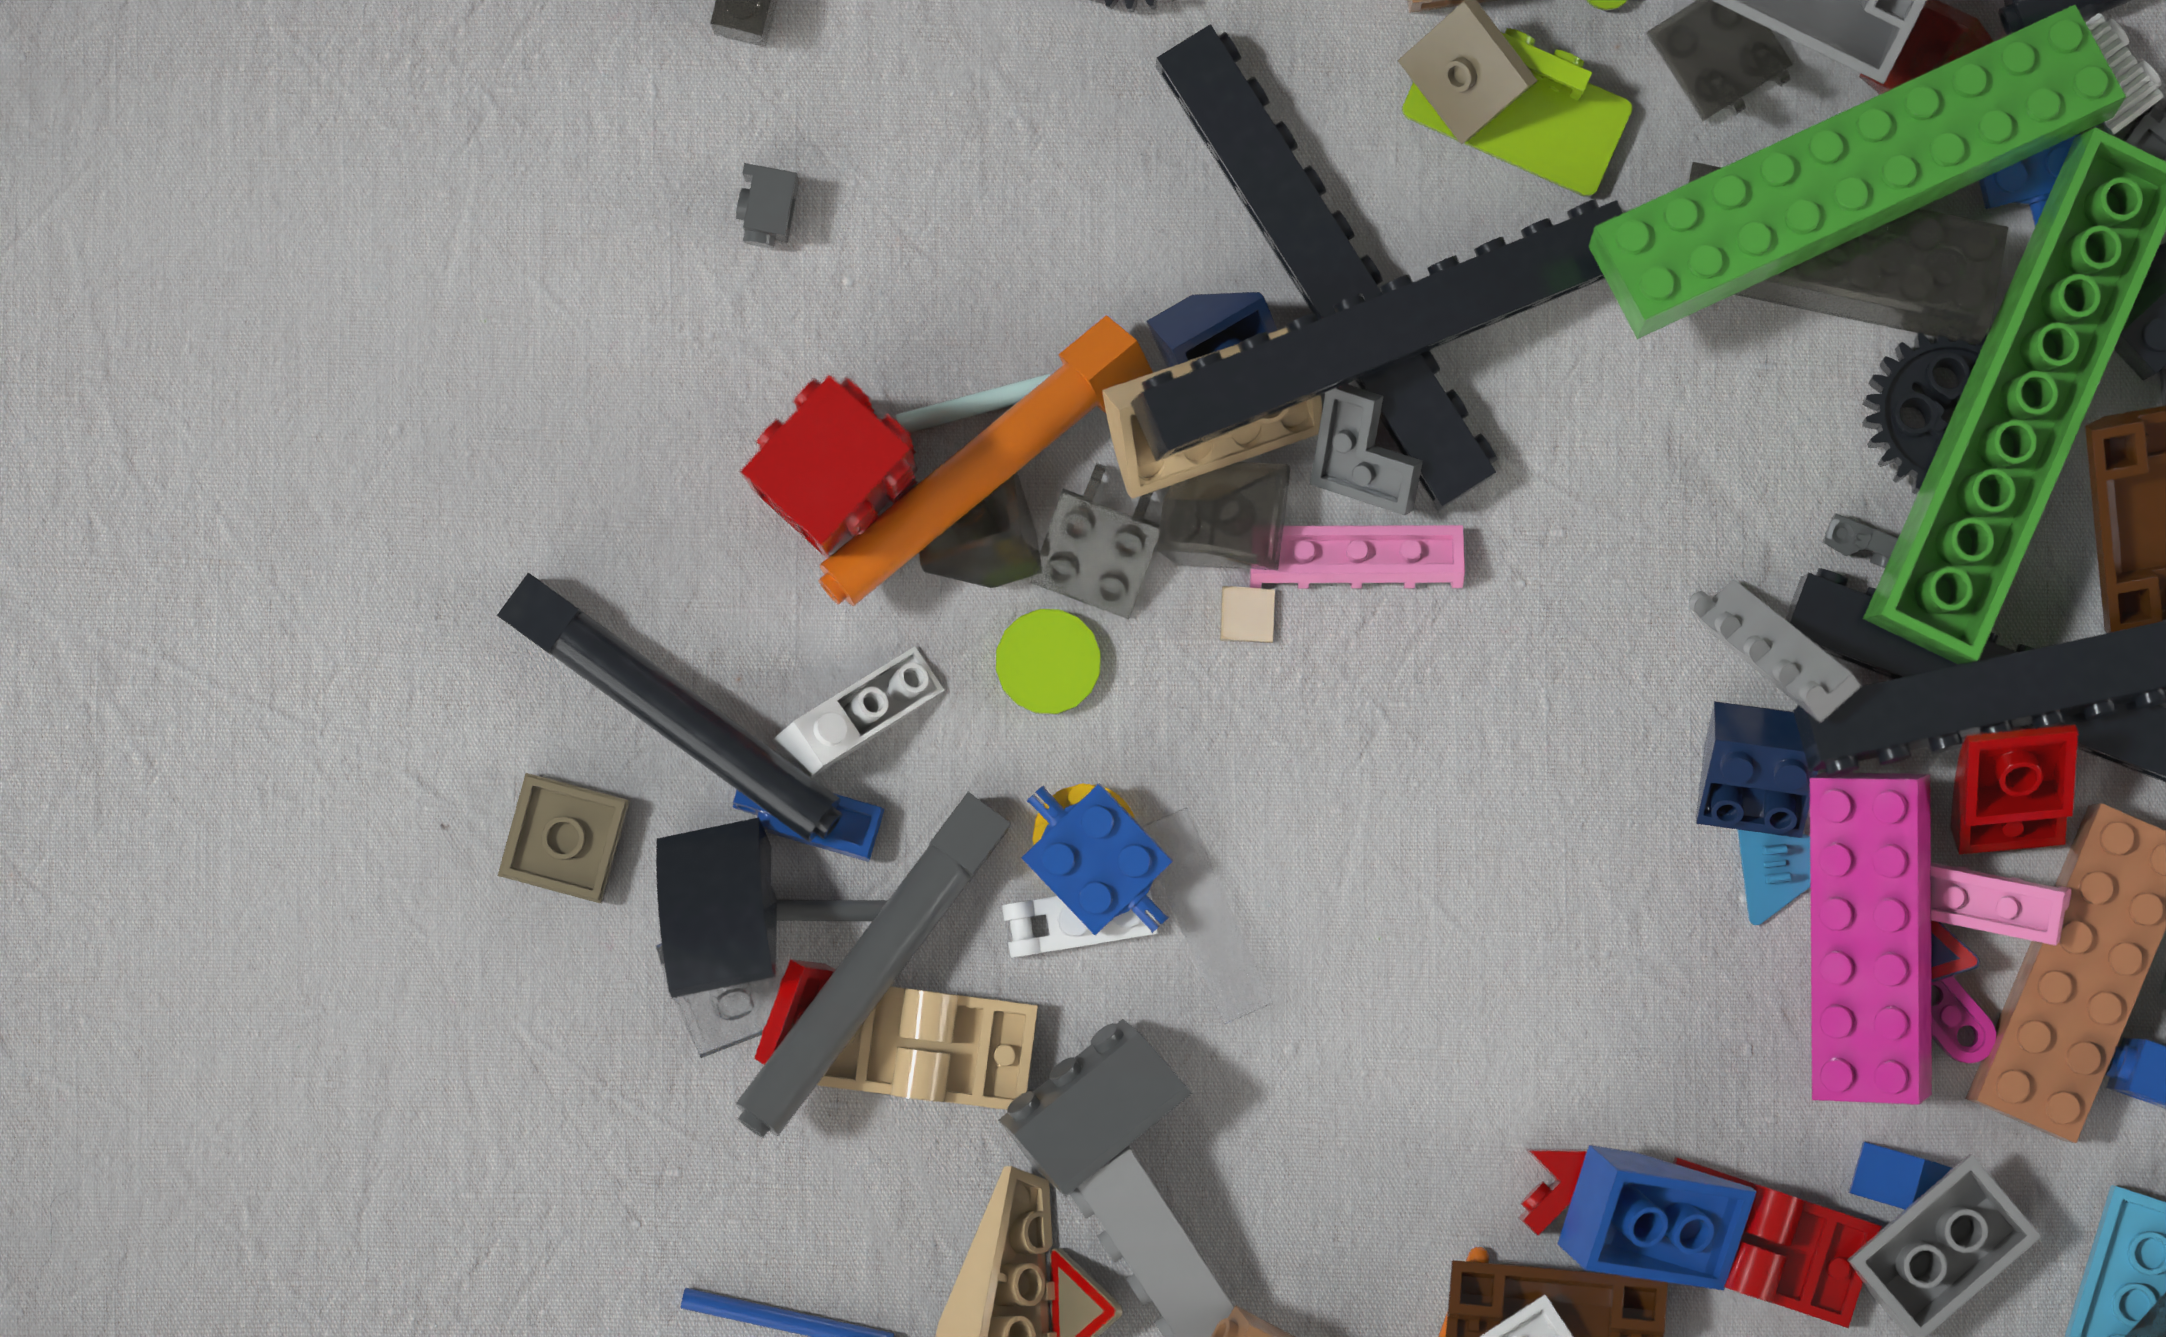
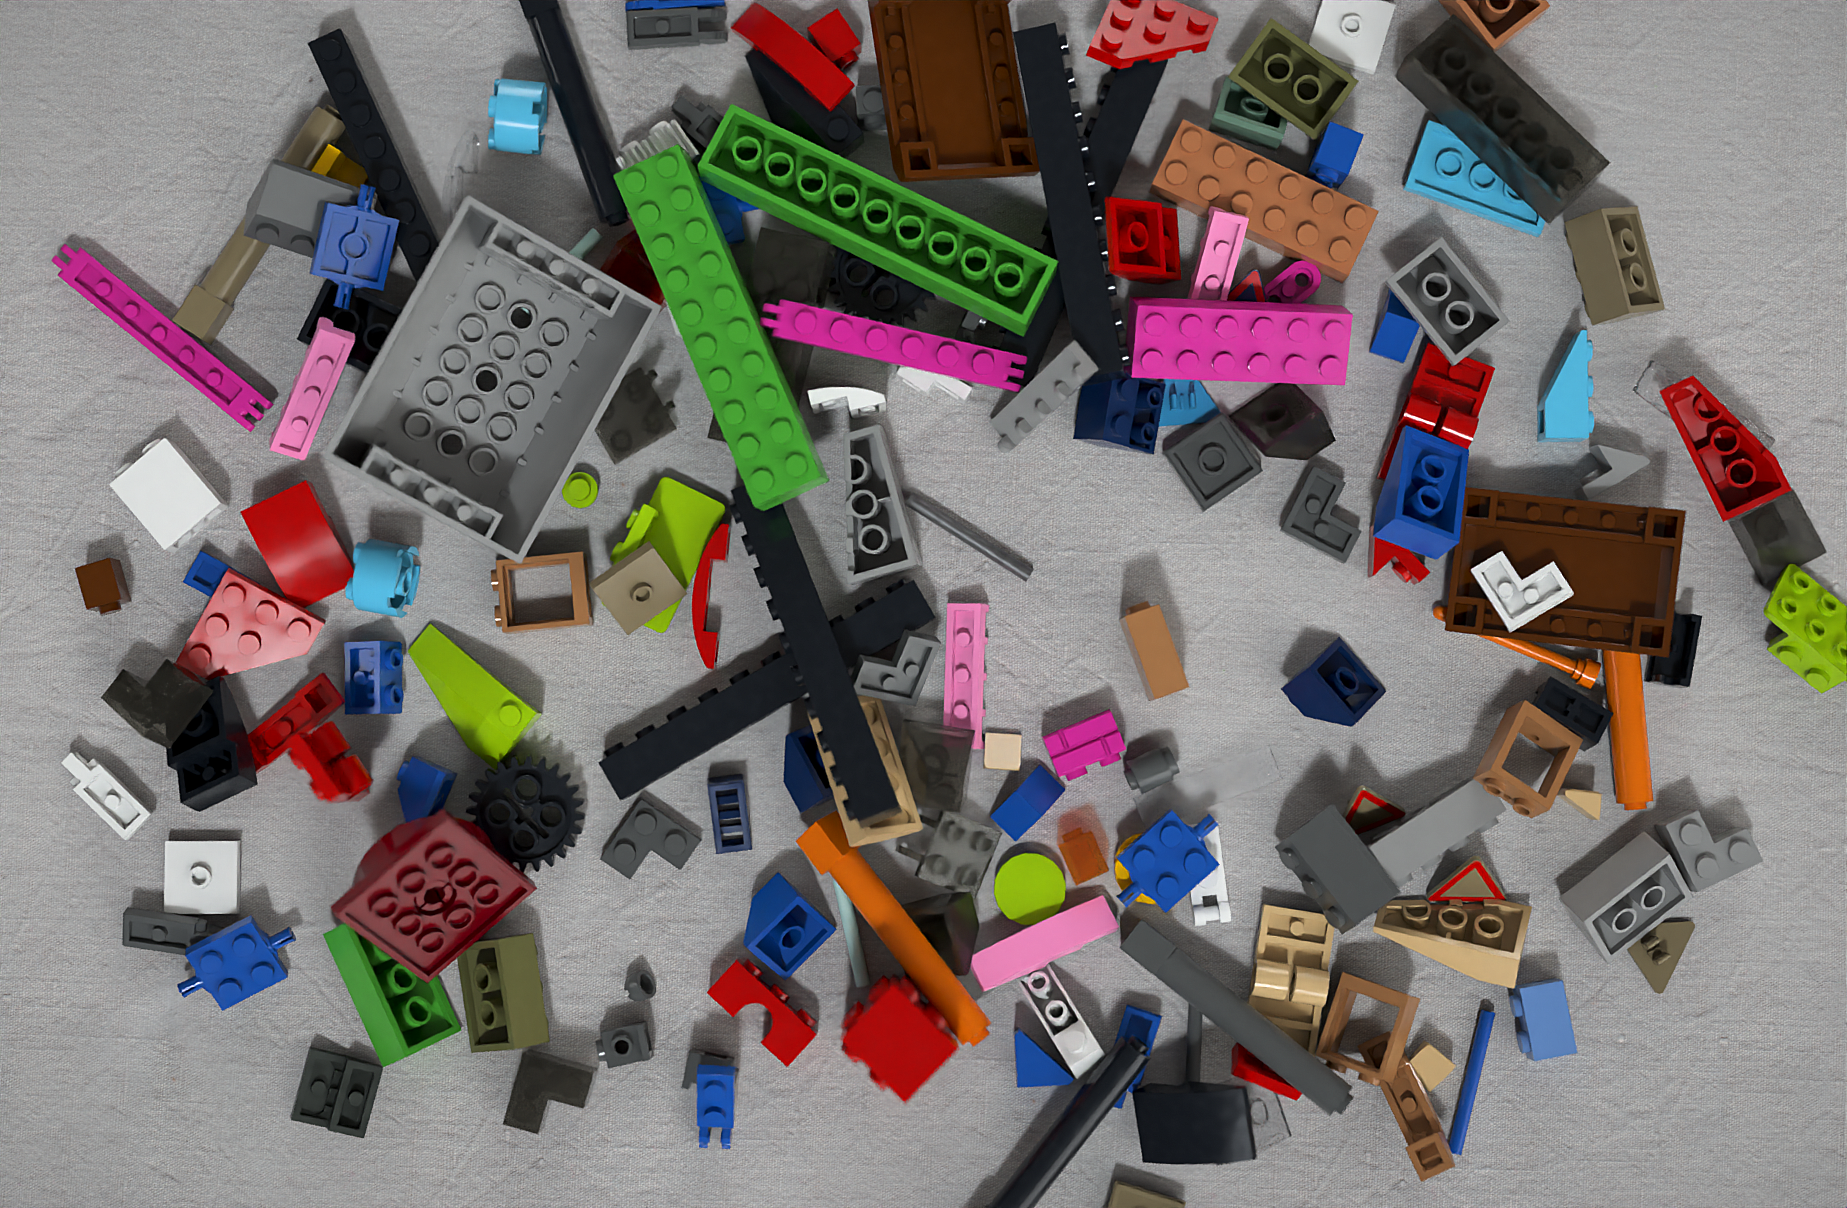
camera: 90 degrees left, 0 degrees up
(723, 213) = (715, 1102): none -> blue hinge
(754, 1227) = (1412, 1111): none -> medium nougat slope
(792, 677) = (1035, 1066): none -> blue slope
(804, 101) = (637, 1038): none -> dark grey brick
(808, 1255) = (1430, 1065): none -> tan slope
(832, 318) = (743, 986): none -> red arch
(873, 1120) = (1338, 1018): none -> medium nougat window
(894, 109) = (640, 986): none -> dark grey hinge
(970, 681) = (1043, 943): none -> bright pink slope
(980, 305) = (784, 927): none -> blue slope
(1099, 734) = (1082, 855): none -> clear orange brick
(1111, 102) = (647, 831): none -> dark grey plate
(1173, 654) = (1027, 803): none -> blue slope
(1180, 1157) = (1370, 810): none -> dark tan piece
(1186, 210) = (724, 783): none -> dark blue slope
(1229, 833) = (1151, 769): none -> dark grey brick
(1262, 733) = (1084, 744): none -> dark pink brick
(1362, 1100) = (1334, 687): none -> dark blue slope
(1405, 827) = (1153, 650): none -> medium nougat brick
(1527, 184) = (717, 551): none -> red slope
(1561, 555) = (969, 537): none -> flat silver bar
(1591, 415) = (877, 519): none -> light grey wedge
(1607, 1060) = (1311, 518): none -> dark grey plate
(1688, 910) = (1212, 461): none -> dark grey plate
(1749, 1014) = (1284, 423): none -> clear smoke slope
(1755, 381) = (860, 401): none -> white slope
(1791, 482) = (924, 382): none -> white slope
(1842, 428) = (894, 344): none -> dark pink hinge

